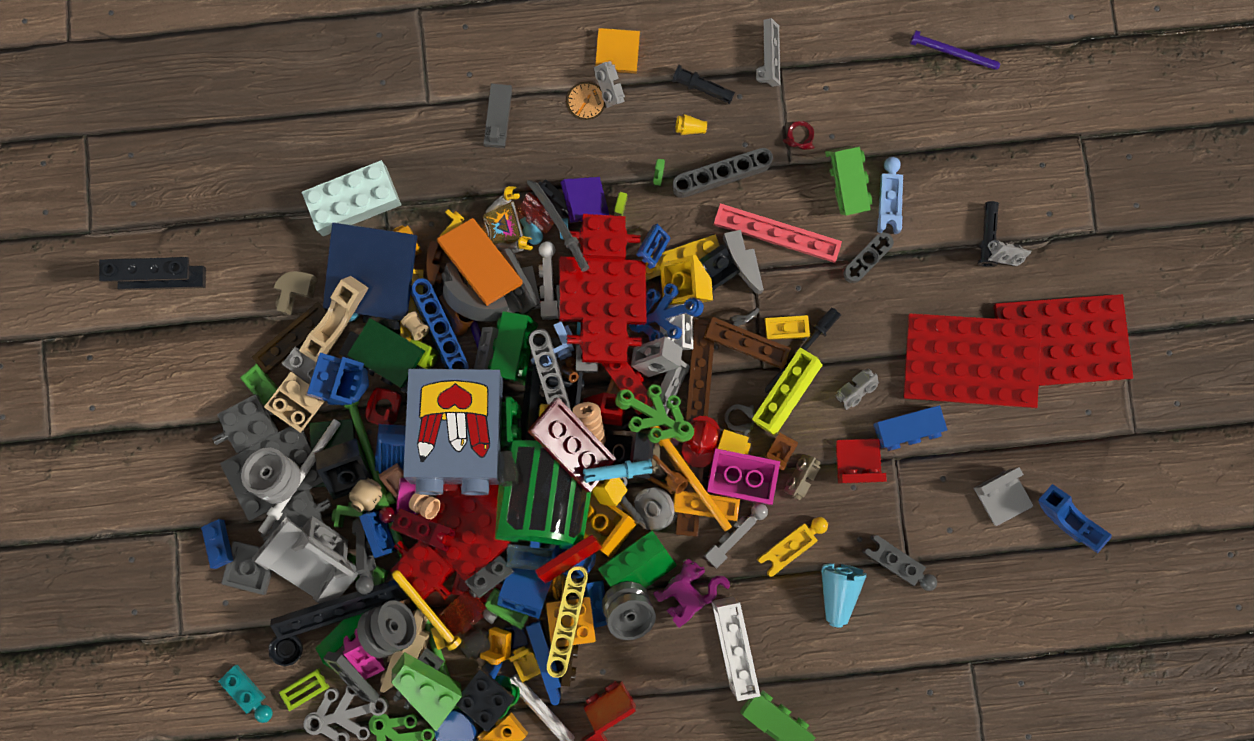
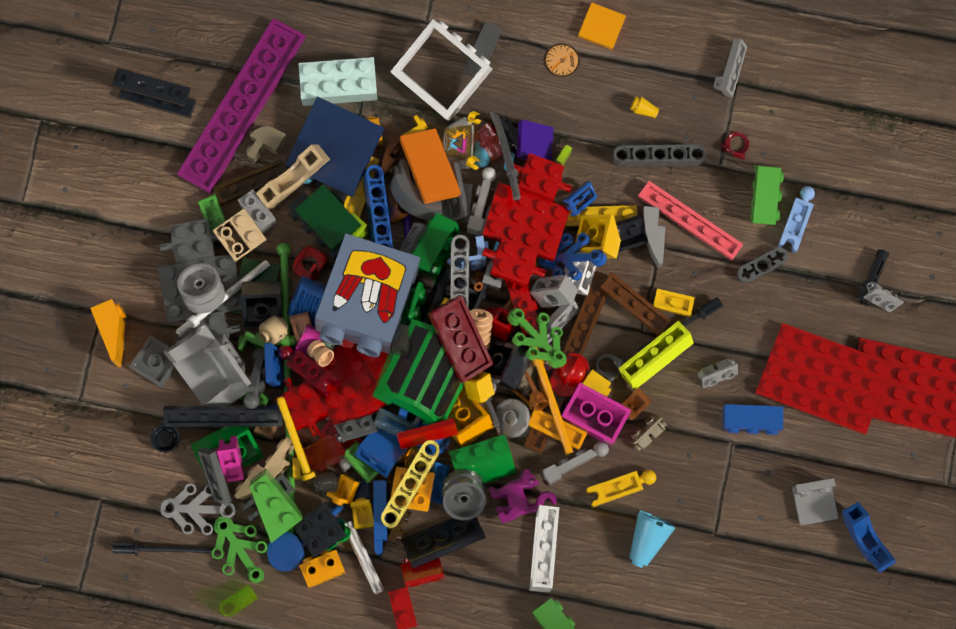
camera: 15 degrees right, 5 degrees down
(187, 548) = (112, 327): none -> light orange slope
(217, 544) = (135, 333): blue plate -> none
(246, 694) = (119, 465): teal plate -> none
(255, 257) = (241, 106): none -> magenta plate
(320, 679) = (166, 470): lime tile -> none
(338, 380) = (281, 227): blue piece -> none
(386, 629) = (258, 443): dark grey wheel -> none
(415, 325) = (358, 202): tan bush -> none
(502, 129) = (449, 113): none -> white window
(605, 75) = (585, 60): light grey hinge -> none
(619, 667) = (441, 540): none -> black tile
(627, 470) = (491, 372): medium azure pin -> none
(659, 169) = (605, 138): bright green tile -> none
(694, 81) = (658, 71): black pin -> none
(741, 320) = (634, 283): dark grey piece -> none
(859, 461) = (700, 434): red bracket -> none
(900, 563) = (707, 531): dark grey plate -> none
(917, 38) = (891, 113): dark purple bar -> none

